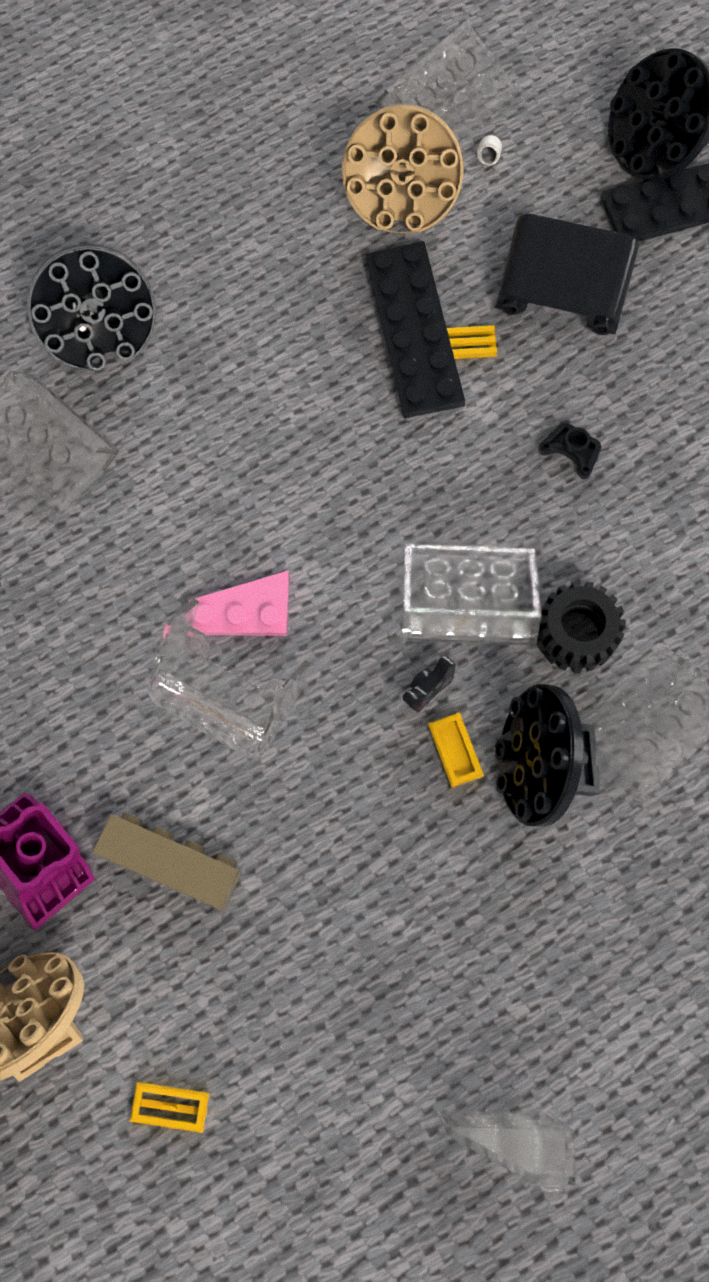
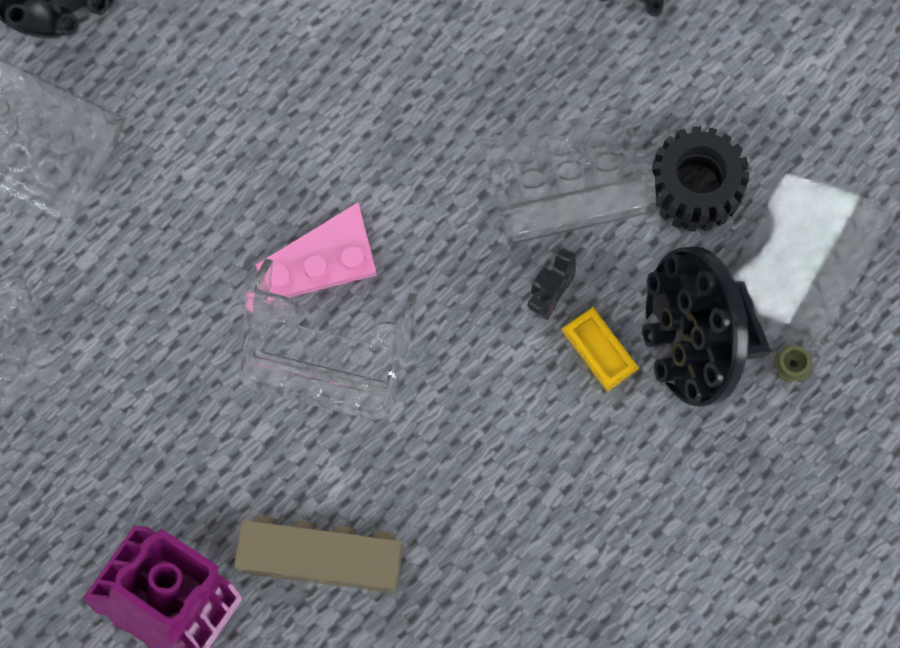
camera: 15 degrees left, 0 degrees up
(626, 804) = (798, 355): none -> olive plate

